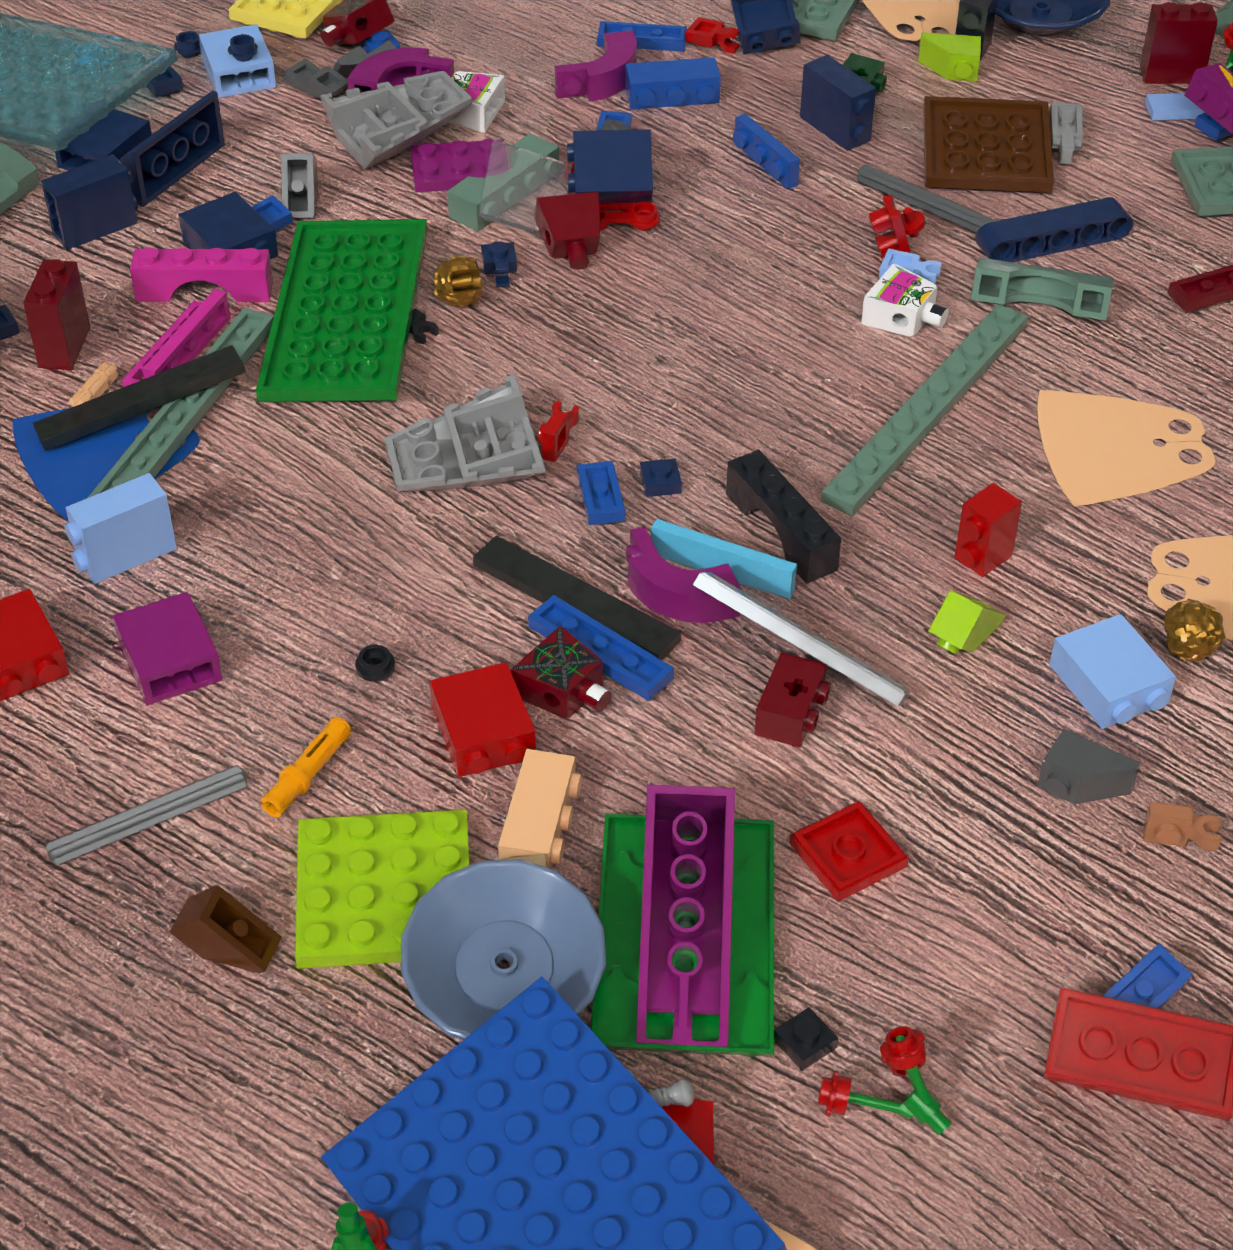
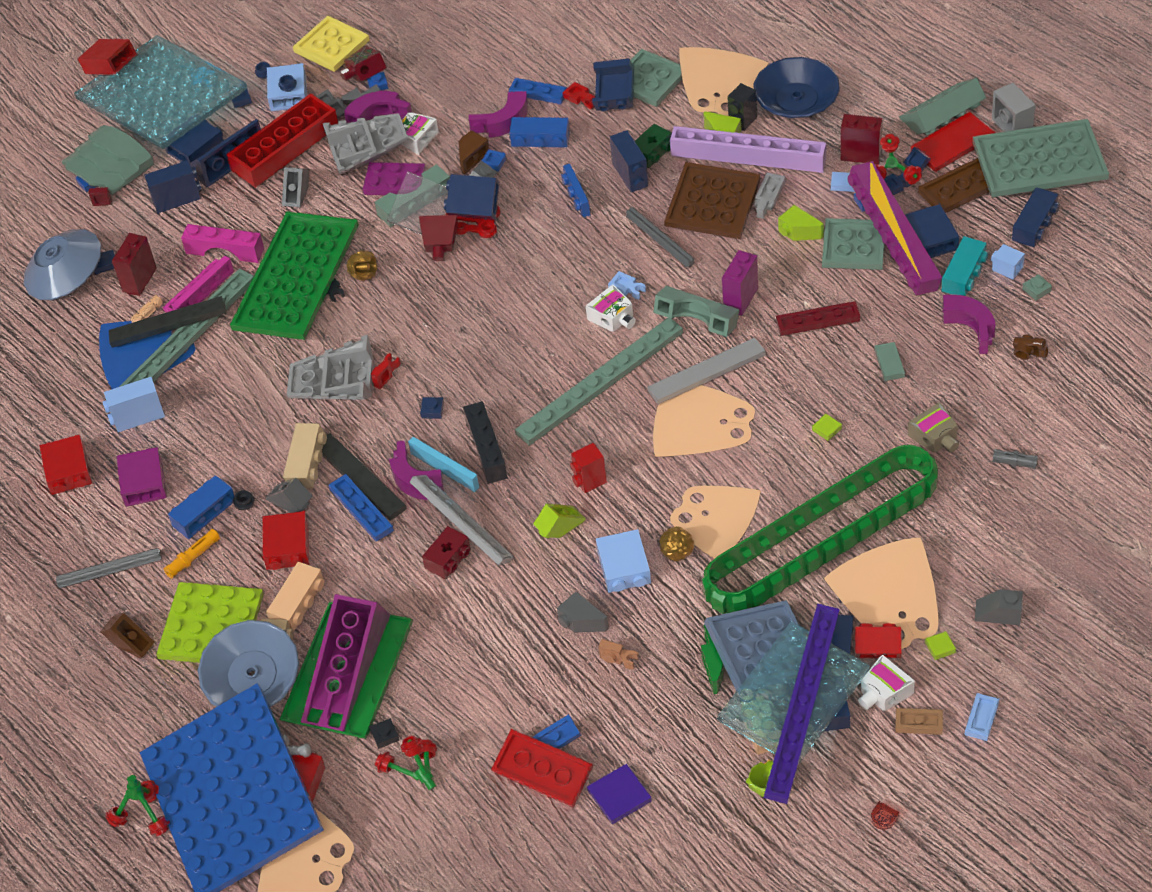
camera: 20 degrees right, 5 degrees up
(227, 225) = (246, 213): dark blue brick -> none
(255, 127) = (281, 140): none -> red brick
(274, 212) = (273, 204): blue plate -> none
(300, 684) = (201, 507): none -> blue brick
(462, 642) = (290, 496): none -> dark grey slope
(470, 574) = (305, 454): none -> tan brick
(499, 259) = (392, 251): dark blue plate -> none
(561, 676) = (333, 522): dark red torso -> none
(574, 111) = (471, 150): none -> reddish brown slope
(600, 493) = (394, 414): blue plate -> none
(848, 851) = (445, 640): red tile -> none
(887, 218) = (628, 258): red hips -> none
(1011, 74) = (748, 149): none -> lavender brick
(1054, 230) = (711, 270): dark blue beam -> none
(1095, 373) = (706, 371): none -> light grey tile
(1101, 231) = (740, 281): none -> magenta brick
(1139, 163) = (800, 225): none -> lime slope

